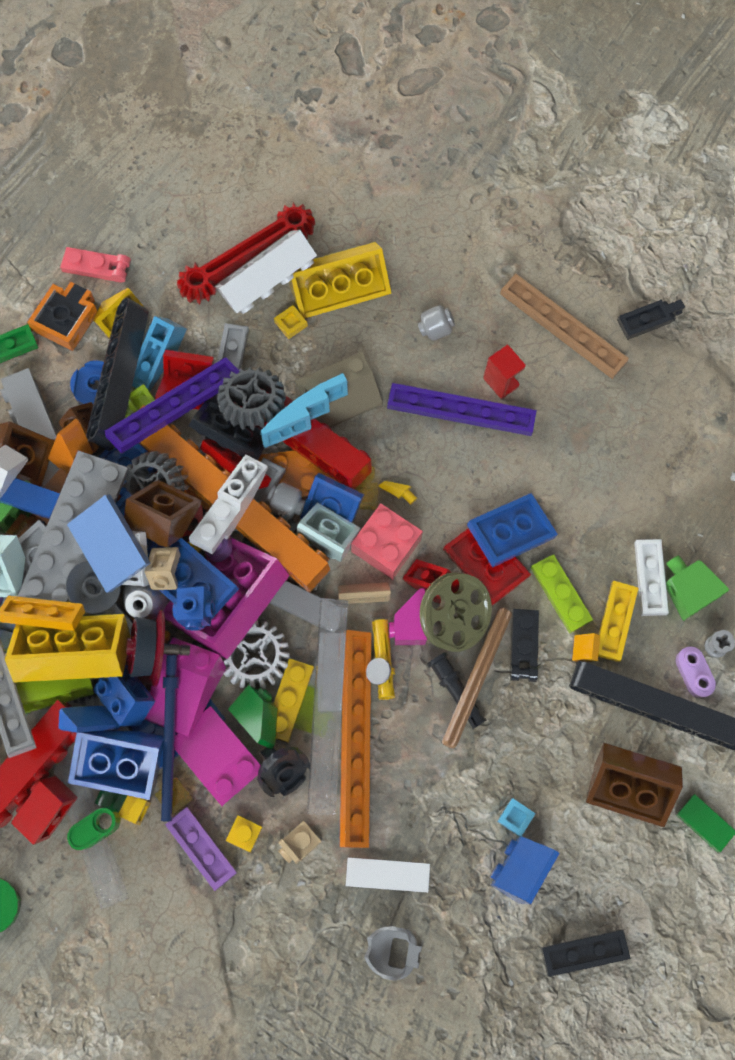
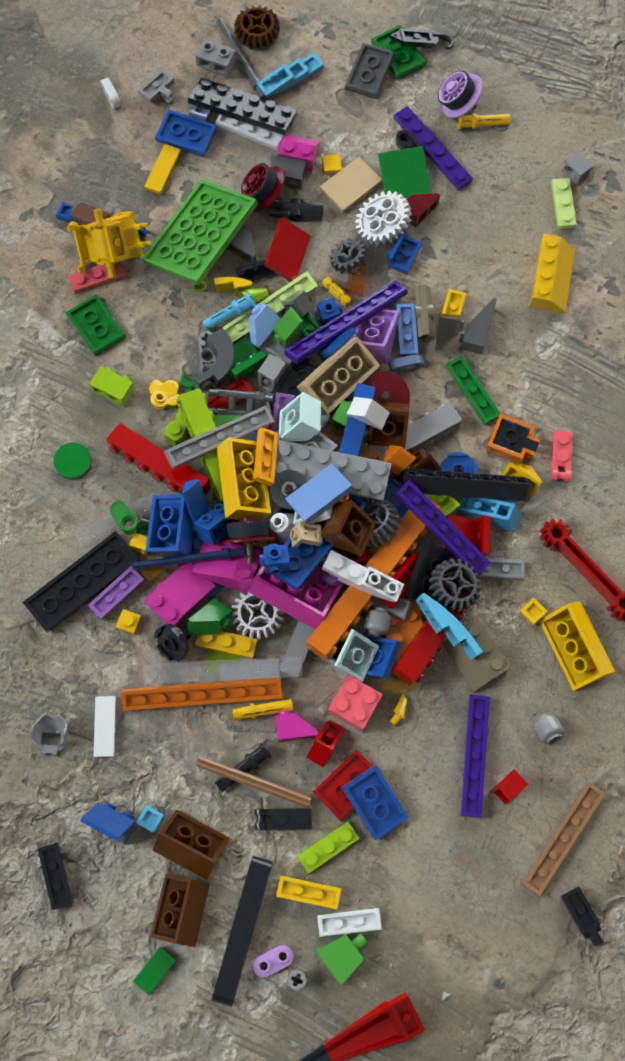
camera: 85 degrees right, 0 degrees up
(43, 809) = (135, 483): red brick -> none
(178, 900) = (80, 581): none -> black plate
(266, 270) = (567, 583): white slope -> none
(298, 843) = (123, 660): tan bracket -> none
(365, 593) = (314, 690): tan slope -> none
(378, 671) = (251, 705): piece -> none
(446, 610) = (299, 751): olive wedge -> none
(552, 764) = (190, 844): none -> reddish brown slope
(586, 647) = (284, 868): light orange tile -> none

